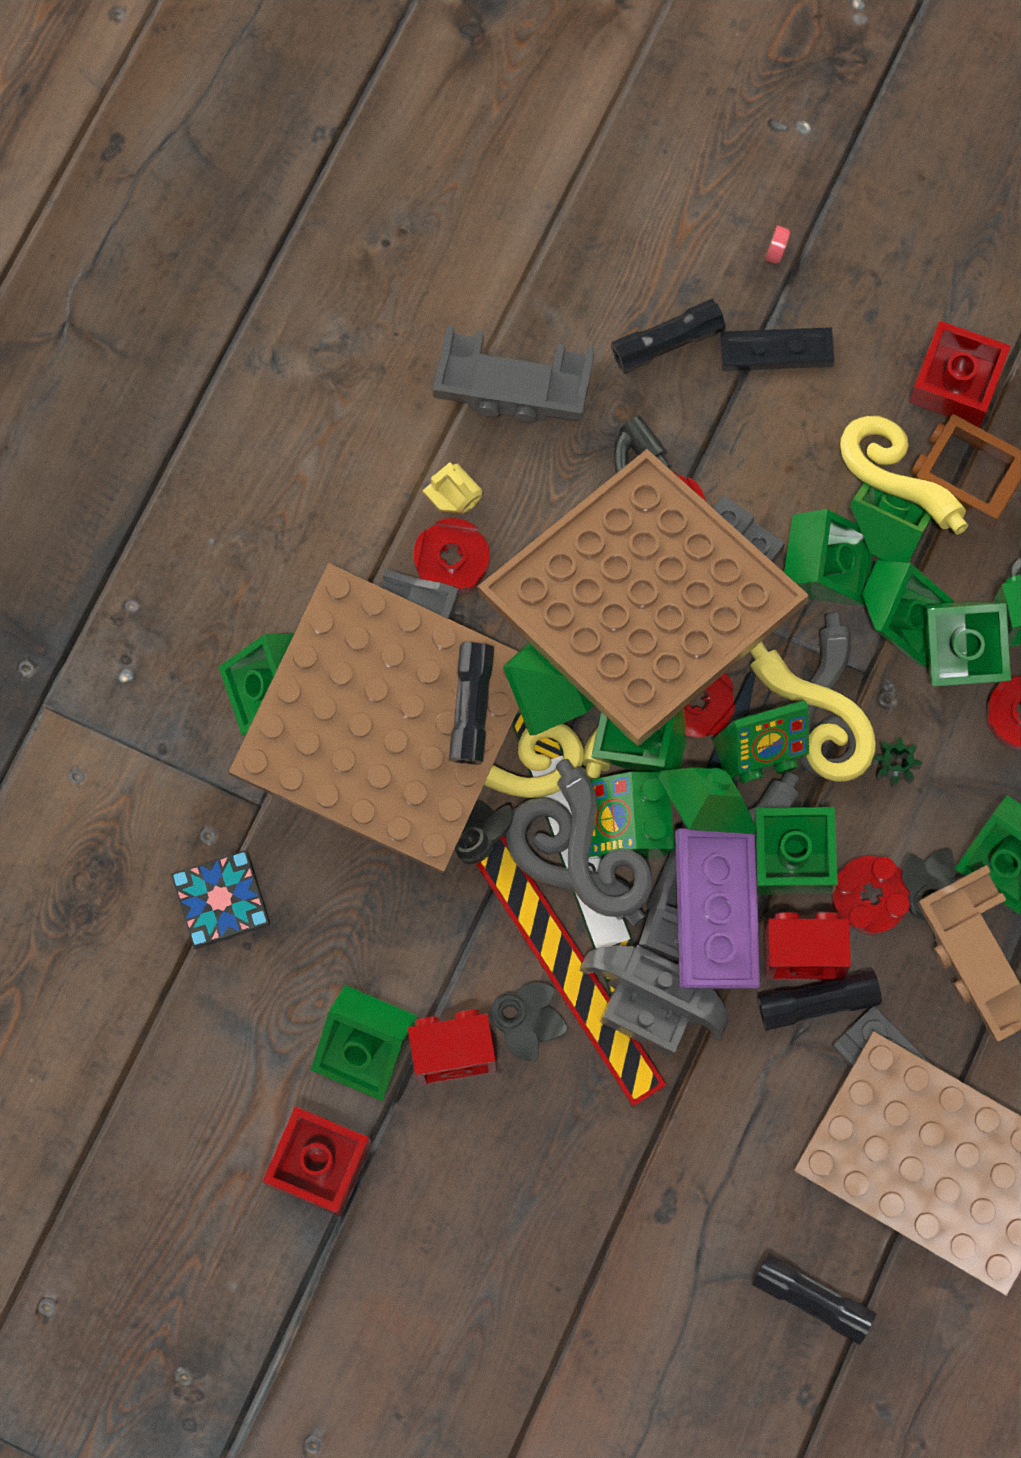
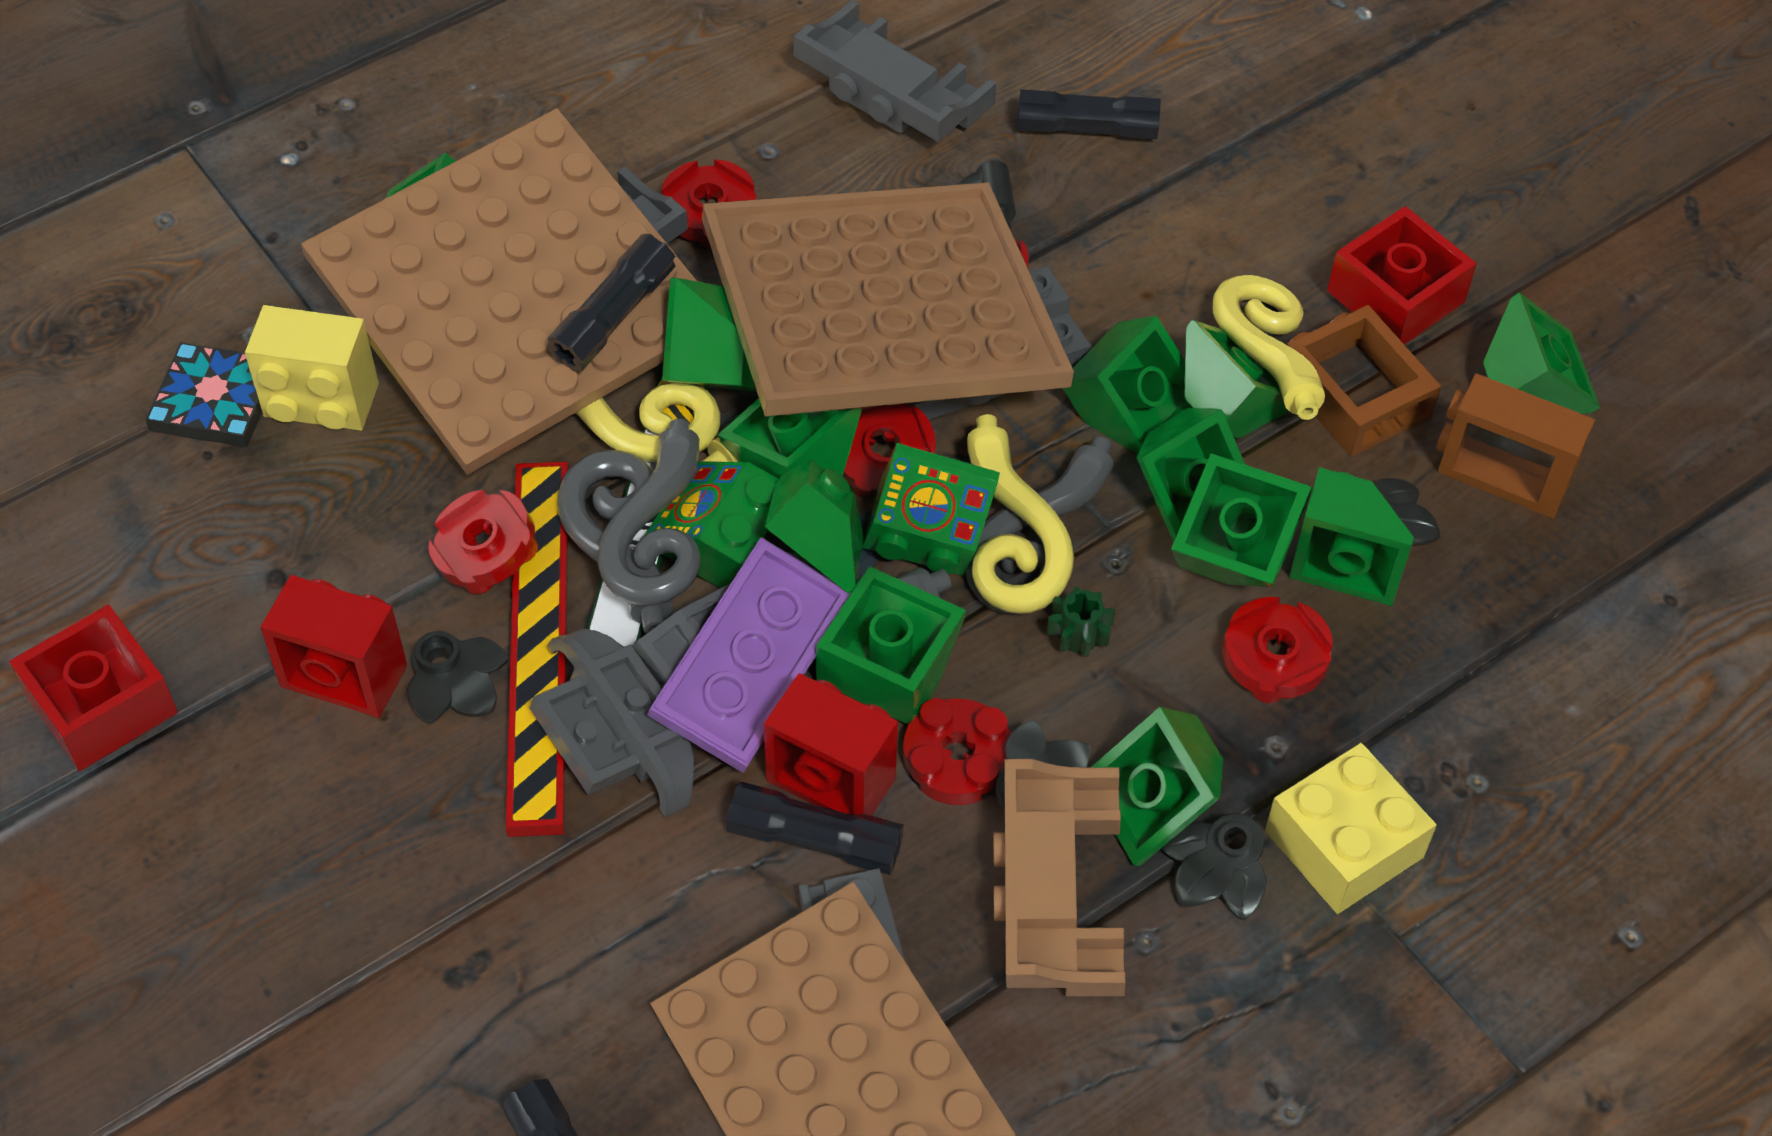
camera: 25 degrees right, 20 degrees down
(288, 854) = (312, 367): none -> light yellow brick
(363, 1042) = (234, 594): green slope -> none
(453, 490) = (752, 134): light yellow piece -> none
(482, 831) = (526, 458): pearl dark grey plate -> none
(506, 911) = (486, 564): none -> red plate
(776, 349) = (1205, 181): black tile -> none
(777, 245) = (1265, 86): coral tile -> none

